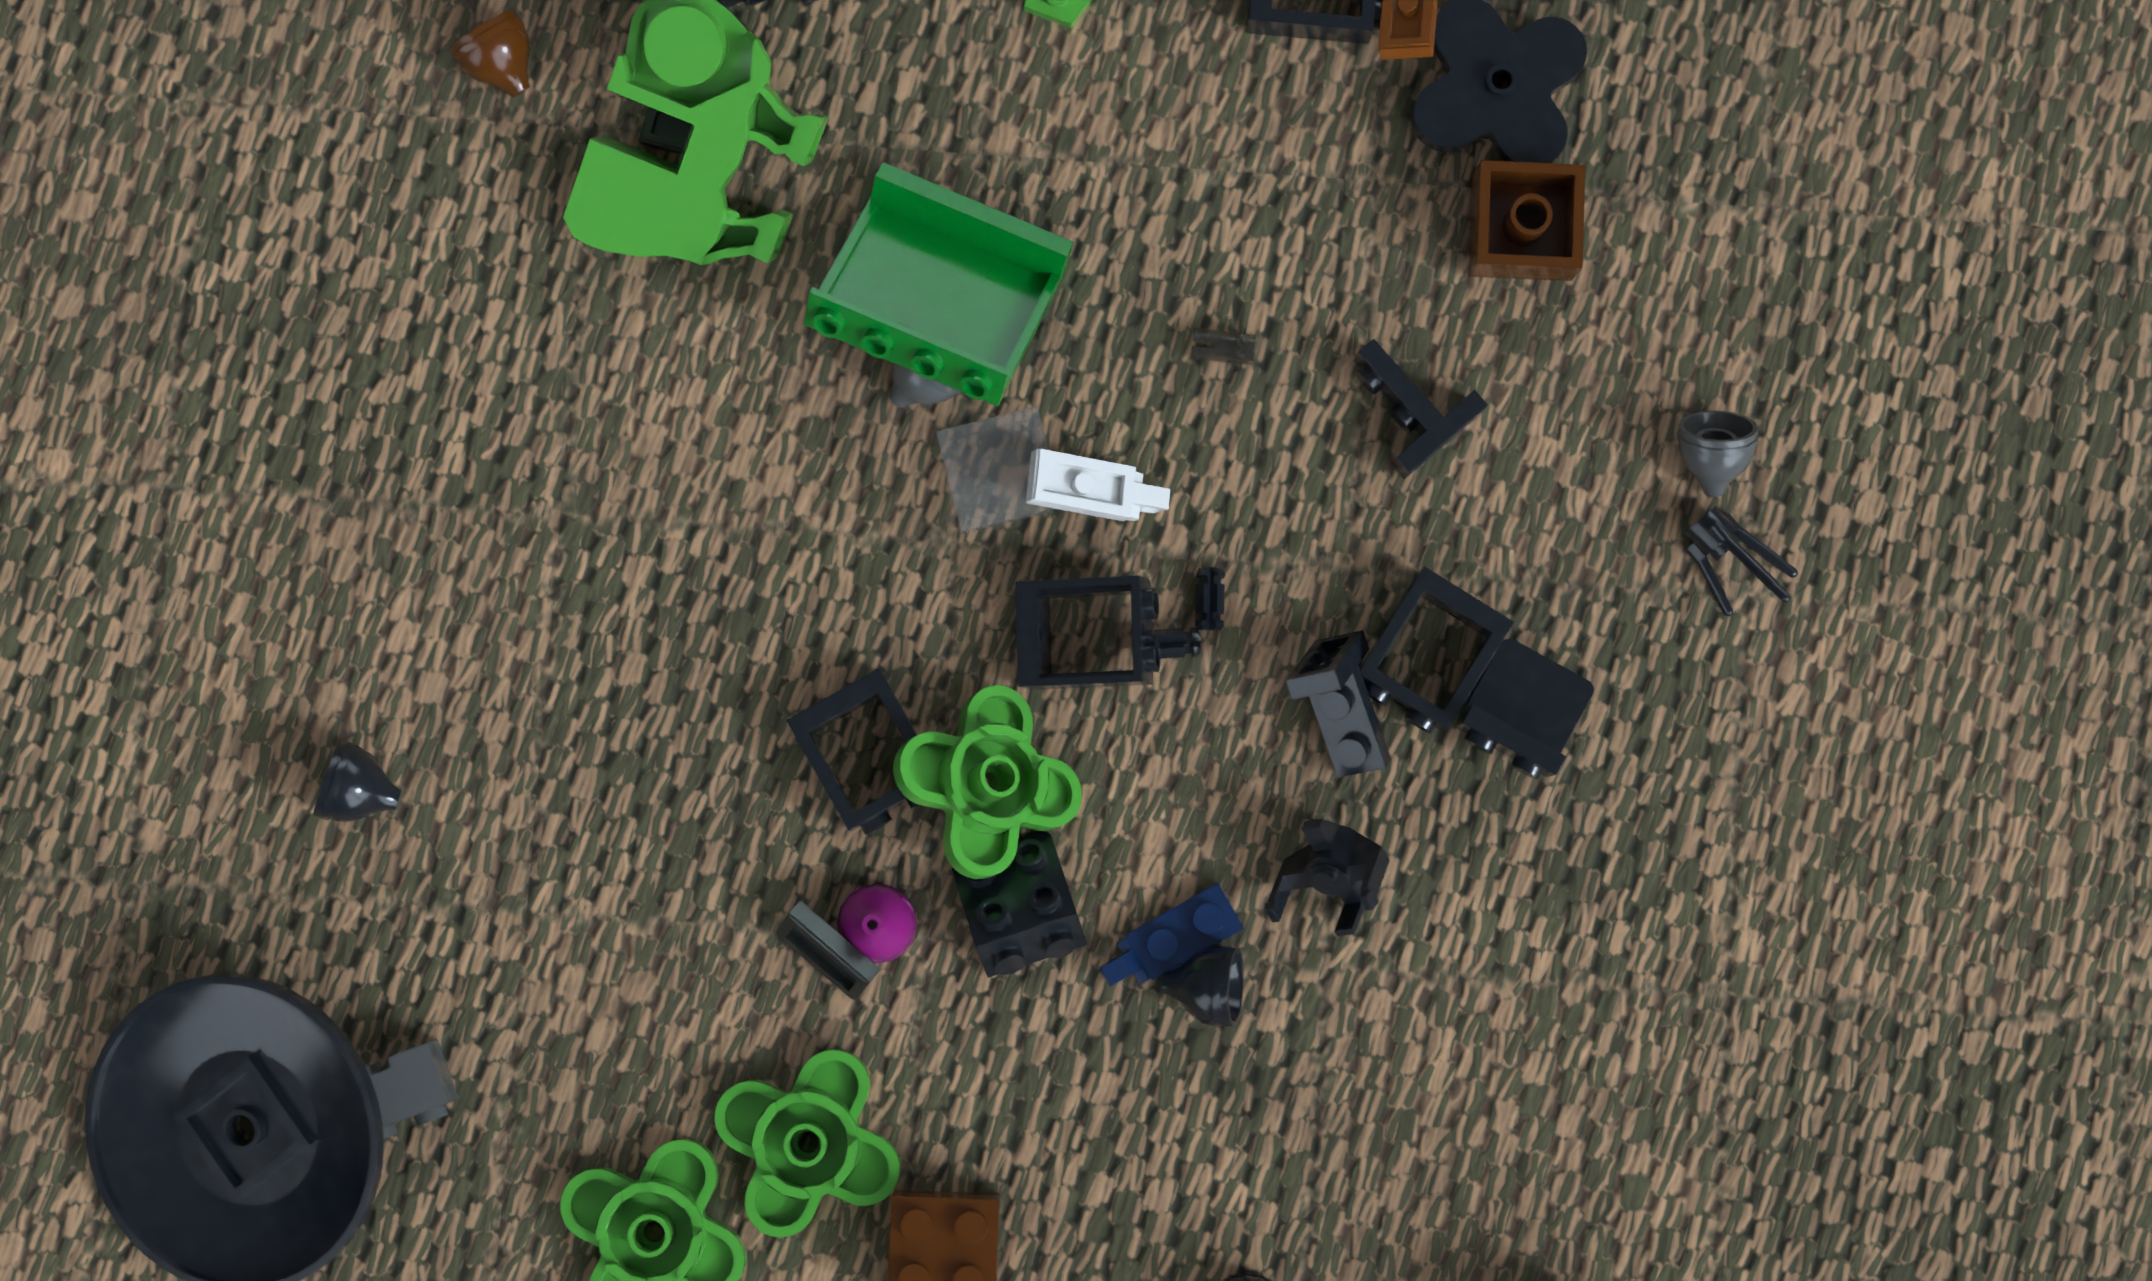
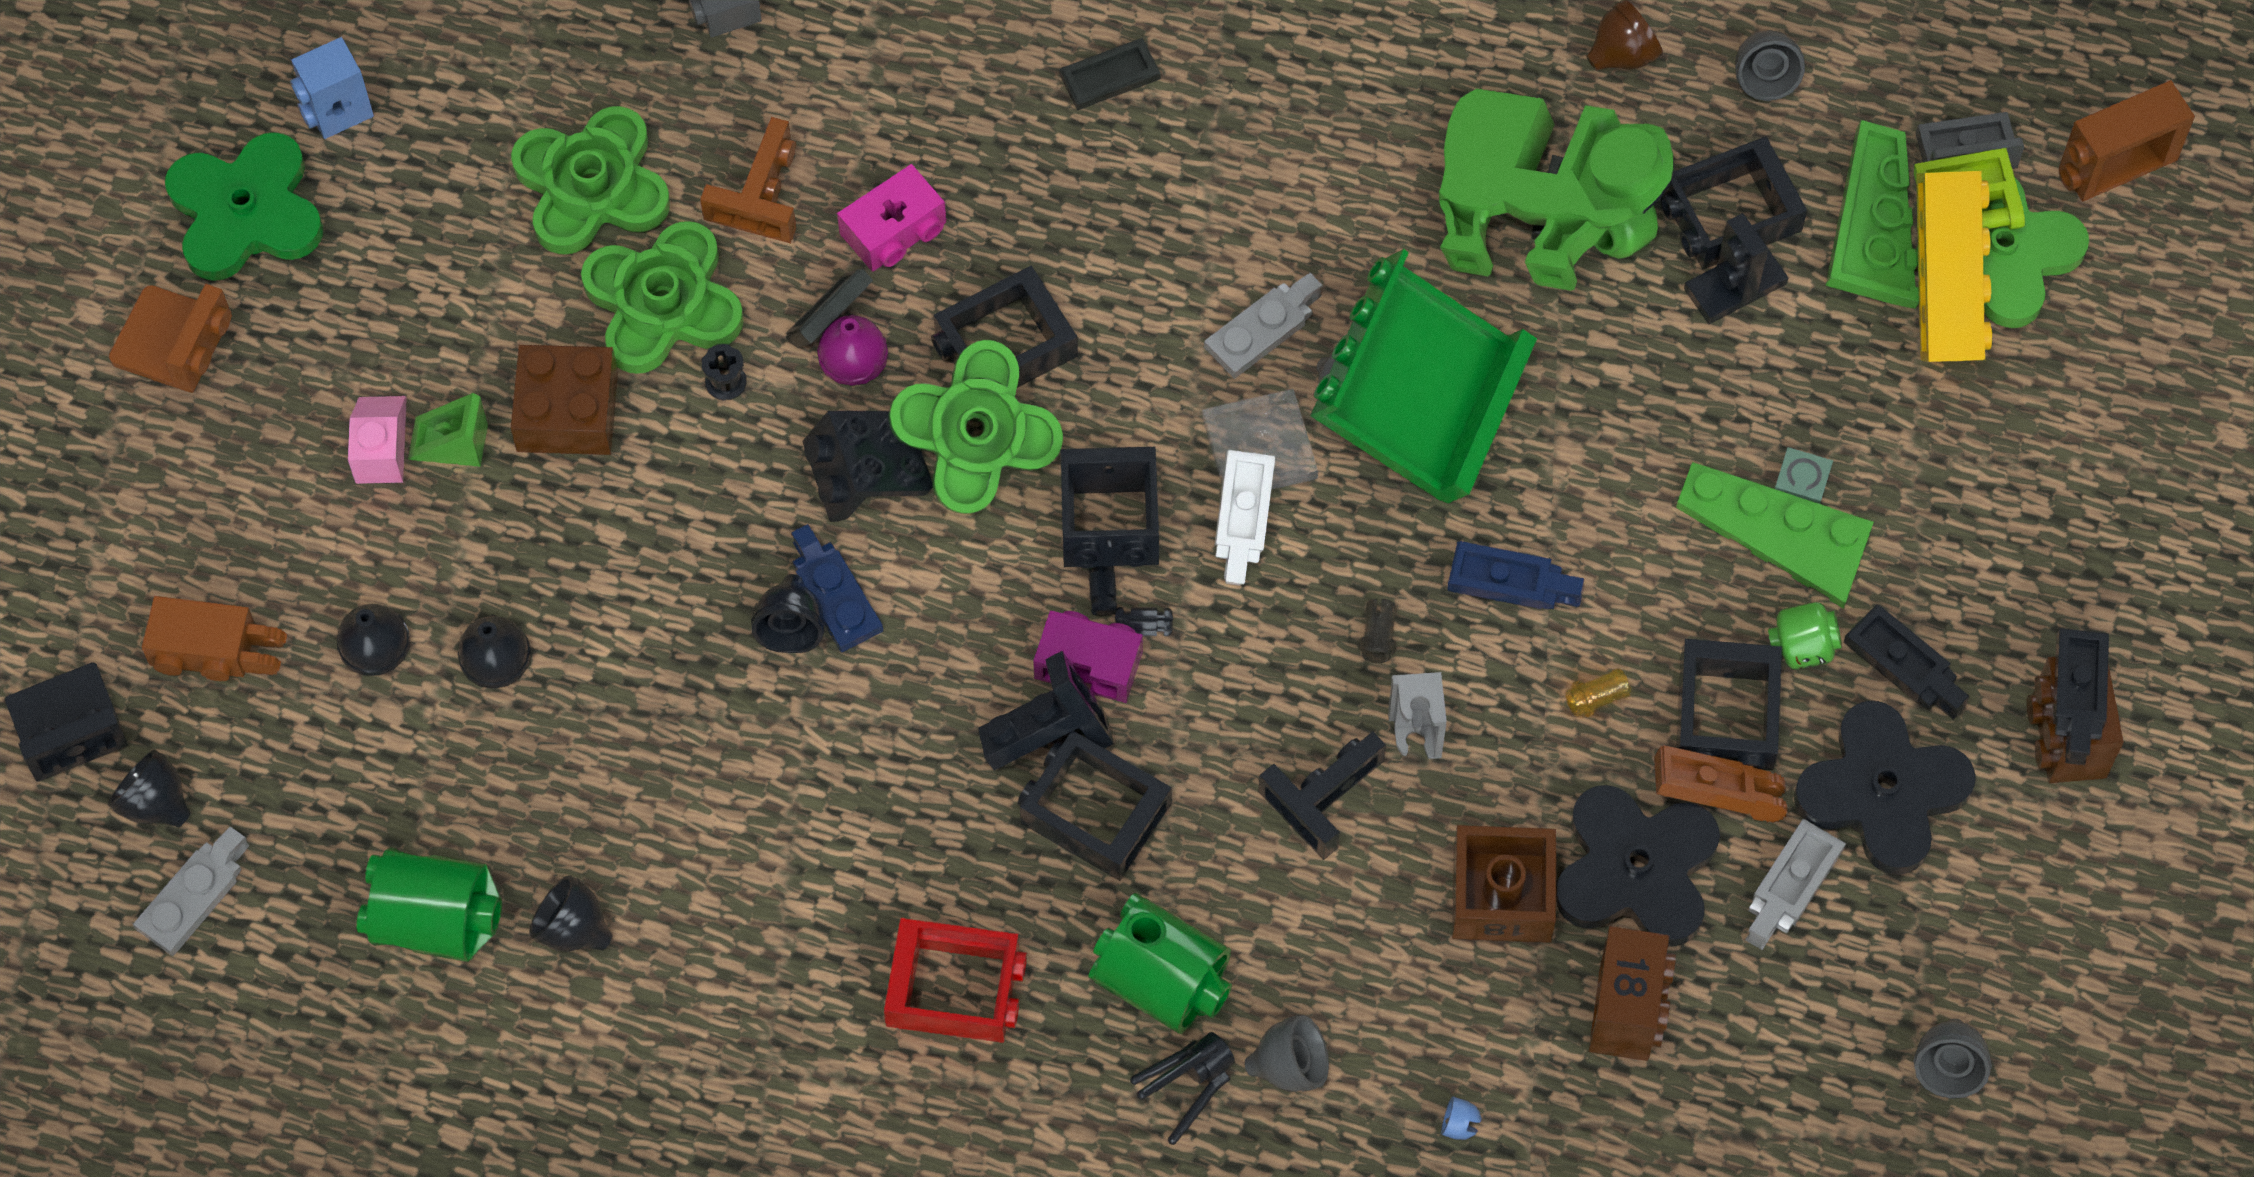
camera: 90 degrees right, 20 degrees down
(520, 635) = (1109, 74): none -> pearl dark grey tile
(671, 1032) = (756, 206): none -> dark orange bracket
(686, 868) = (892, 218): none -> dark pink brick
(850, 465) = (1263, 325): none -> light grey hinge
(900, 1082) = (715, 381): none -> black bush
(1161, 205) = (1512, 577): none -> dark blue hinge
(1258, 642) = (1099, 652): none -> magenta brick
(1296, 119) = (1596, 693): none -> clear yellow pin
(1335, 296) = (1419, 708): none -> light grey hinge
(1336, 865) = (895, 717): black piece -> none
(1525, 709) = (1037, 886): black bracket -> none
(1570, 1216) = (570, 918): none -> black helmet
(1631, 558) = (1162, 965): none -> green cylinder
(1656, 94) = (1632, 994): none -> reddish brown brick
(1664, 744) = (961, 940): none -> red window
(1776, 272) = (1459, 1115): none -> medium blue hinge

